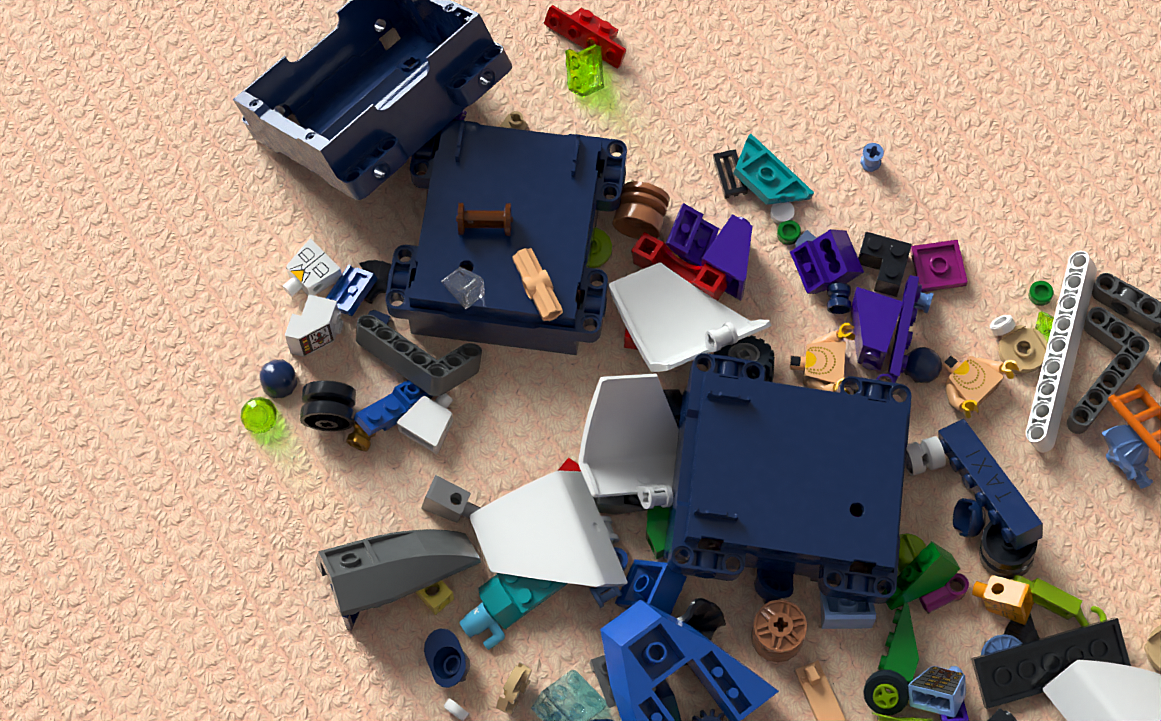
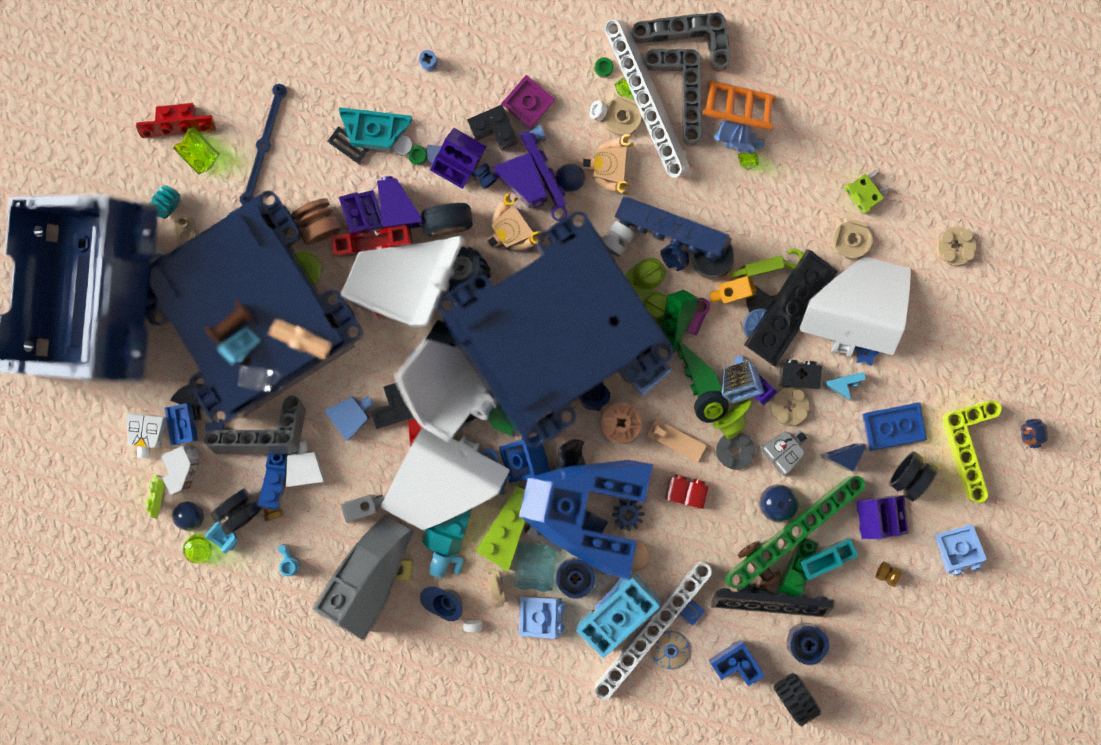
camera: 40 degrees left, 20 degrees up
(274, 326) = (155, 497): none -> lime plate
(290, 422) = (219, 538): none -> medium azure bracket
(330, 498) = (290, 564): none -> medium azure piece
(475, 245) = (239, 345): none -> medium azure slope
(515, 410) = (350, 415): none -> medium blue torso
(516, 88) = (166, 201): none -> teal gear
(564, 442) = (395, 411): none -> black plate
(567, 643) = (505, 532): none -> lime wedge
(706, 80) = (279, 92): none -> dark blue piece
(770, 301) = (446, 219): none -> black wheel
(924, 516) = (646, 275): none -> lime piece
(1119, 489) = (748, 160): none -> clear neon green slope

